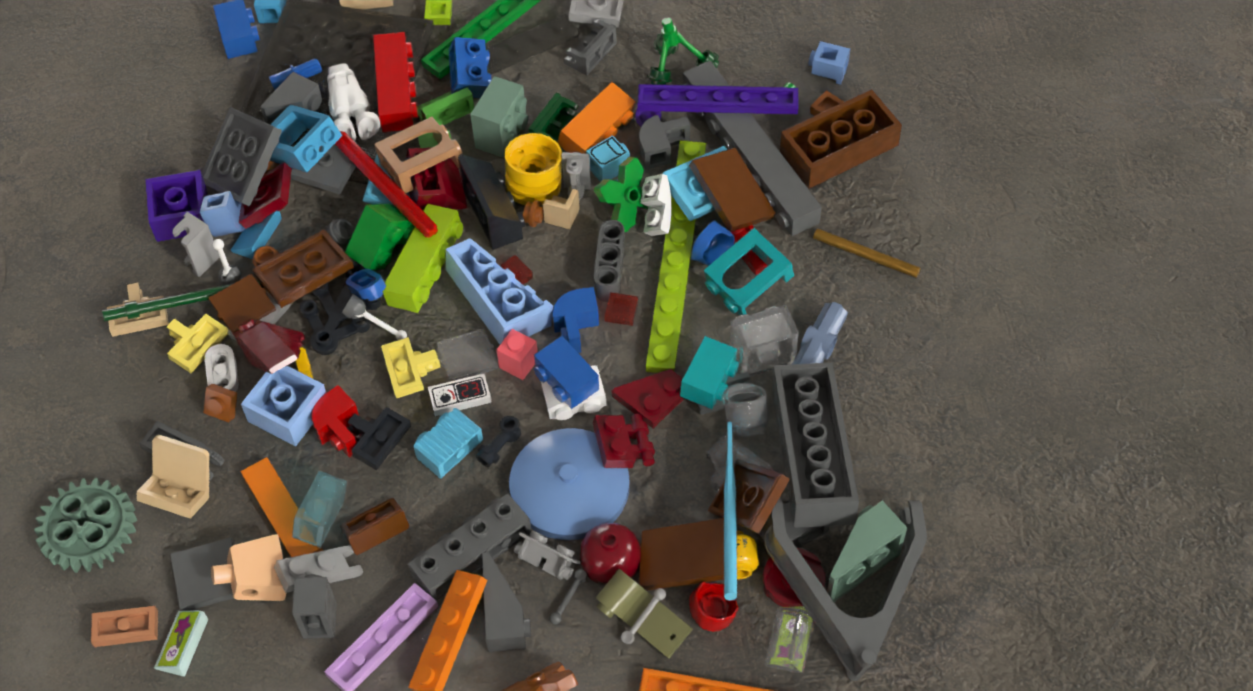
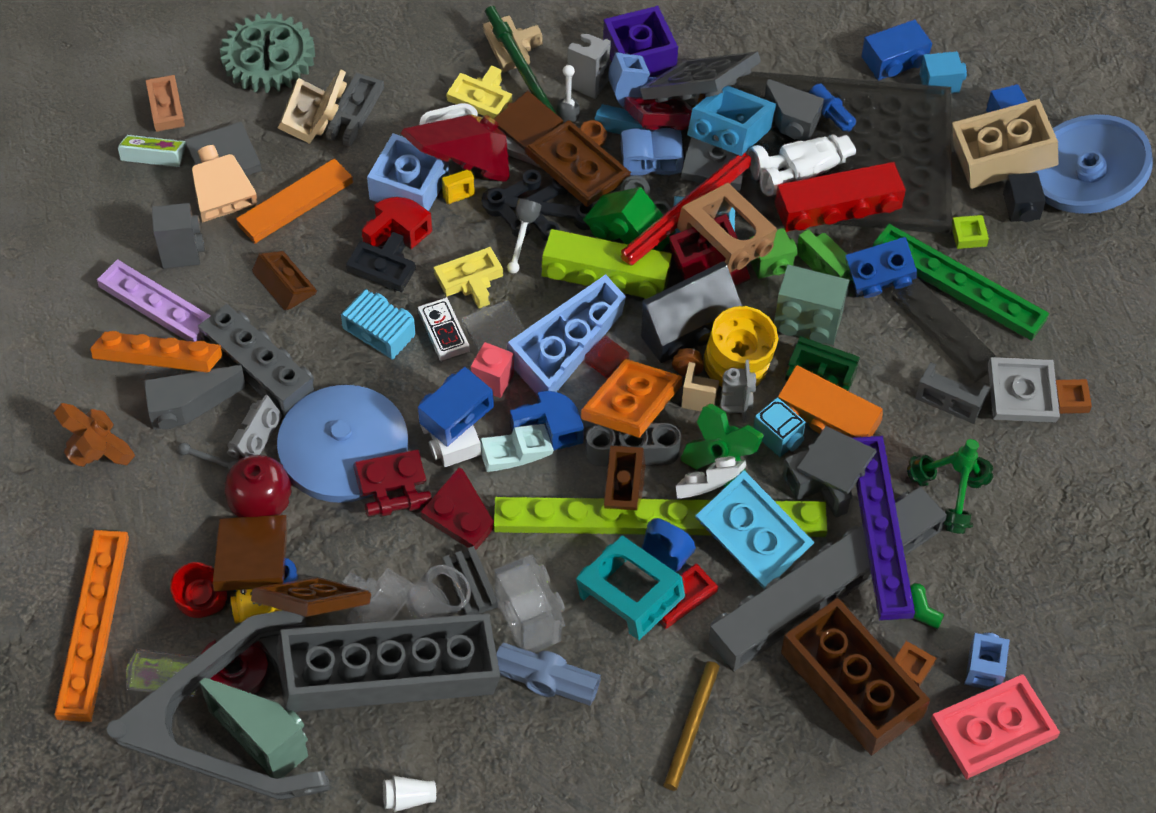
camera: 80 degrees right, 0 degrees up
(220, 402) = (410, 119): dark orange plate -> none
(301, 215) = (652, 151): none -> medium blue brick
(319, 509) = (286, 223): clear light blue brick -> none
(325, 563) = (223, 233): light grey hinge -> none
(366, 284) = (556, 215): blue plate -> none
(509, 433) = (399, 374): black bar -> none
(567, 252) = (631, 398): none -> orange tile
(596, 346) = (521, 447): none -> light aqua slope
(621, 309) = (569, 465): clear red plate -> none
(628, 601) = (203, 507): olive door -> none
(628, 636) = (164, 516): light grey hinge -> none
(650, 264) = (625, 478): none -> reddish brown slope
(657, 115) = (836, 460): none -> dark grey piece
(709, 372) = (479, 550): teal brick -> none
(730, 528) = (351, 578): medium azure piece -> none
(732, 189) = (745, 555): reddish brown tile -> none
(882, 67) = (995, 726): none -> coral plate
(919, 450) = (405, 793): none -> white cone

